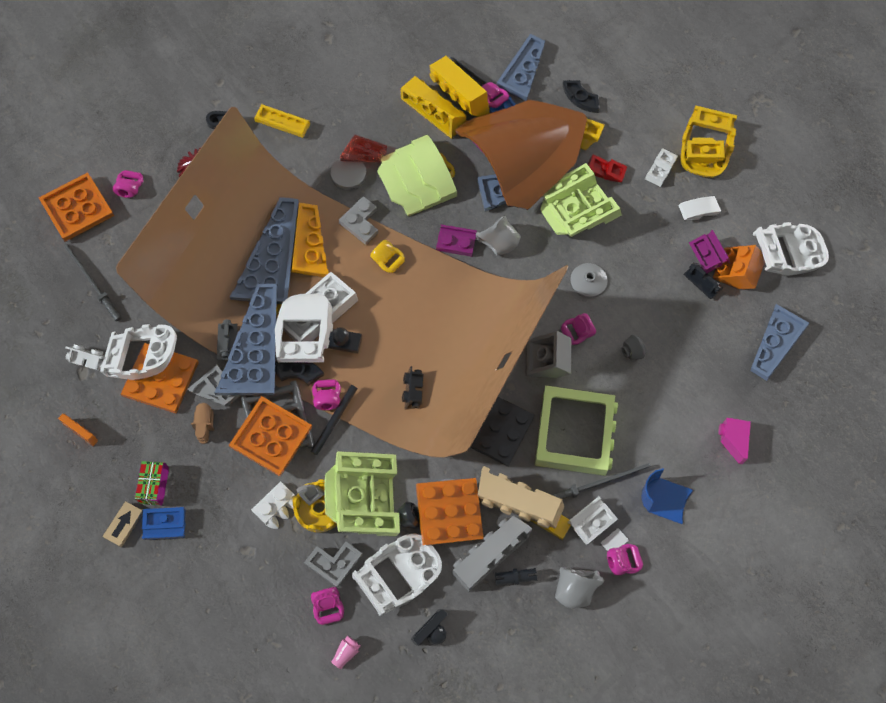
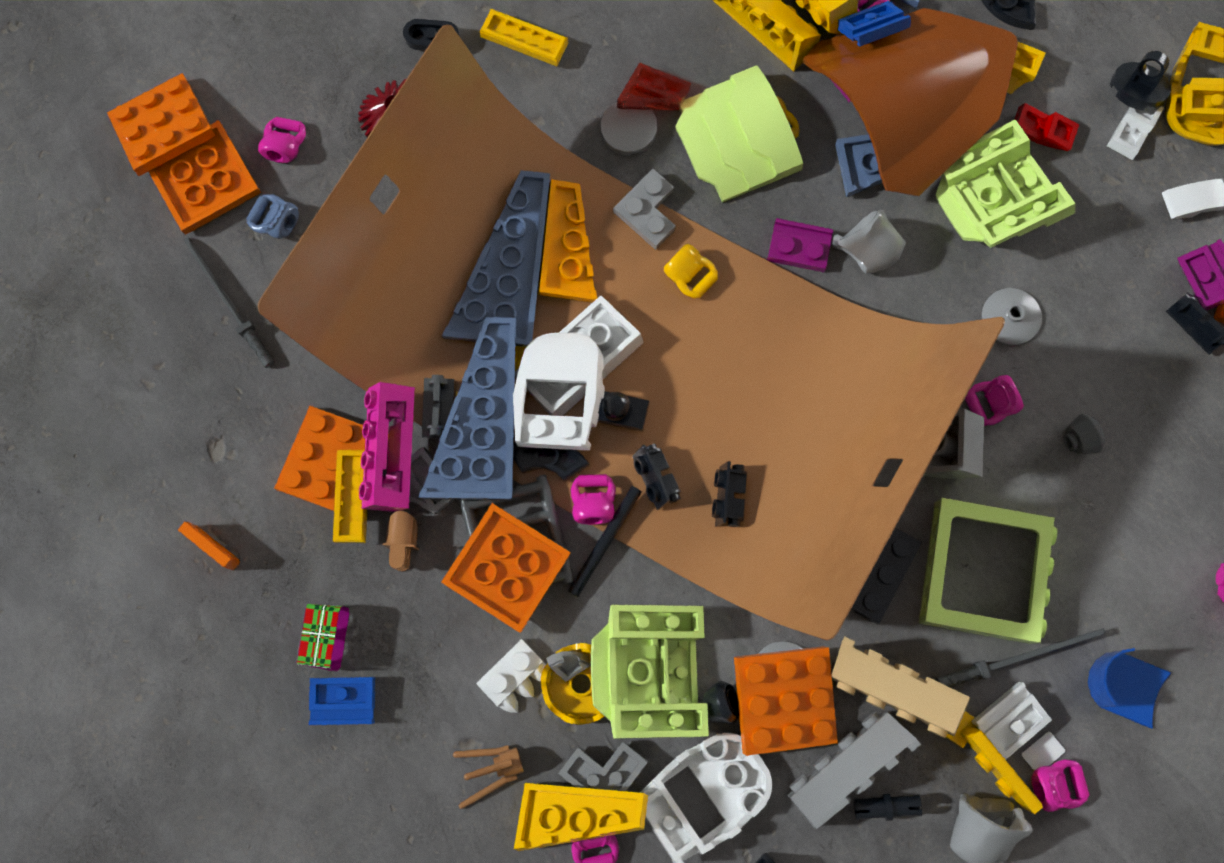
camera: 10 degrees right, 10 degrees up
(50, 175) = (160, 124): none -> orange plate
(79, 354) = (232, 427): white hinge -> none
(123, 524) = (280, 699): tan tile -> none
(125, 232) = (279, 219): none -> sand blue piece
(158, 356) = (331, 429): white slope -> none
(171, 395) = (349, 518): none -> yellow plate
(193, 337) = (383, 404): none -> dark pink brick
(270, 557) = (506, 764): none -> medium nougat plant
(314, 584) = (573, 814): none -> yellow wing
(362, 372) = (660, 489): none -> black hinge
(497, 108) = (874, 23): none -> blue plate
(580, 543) = (1008, 780): none -> yellow plate
(664, 142) = (1142, 84): none -> black tile

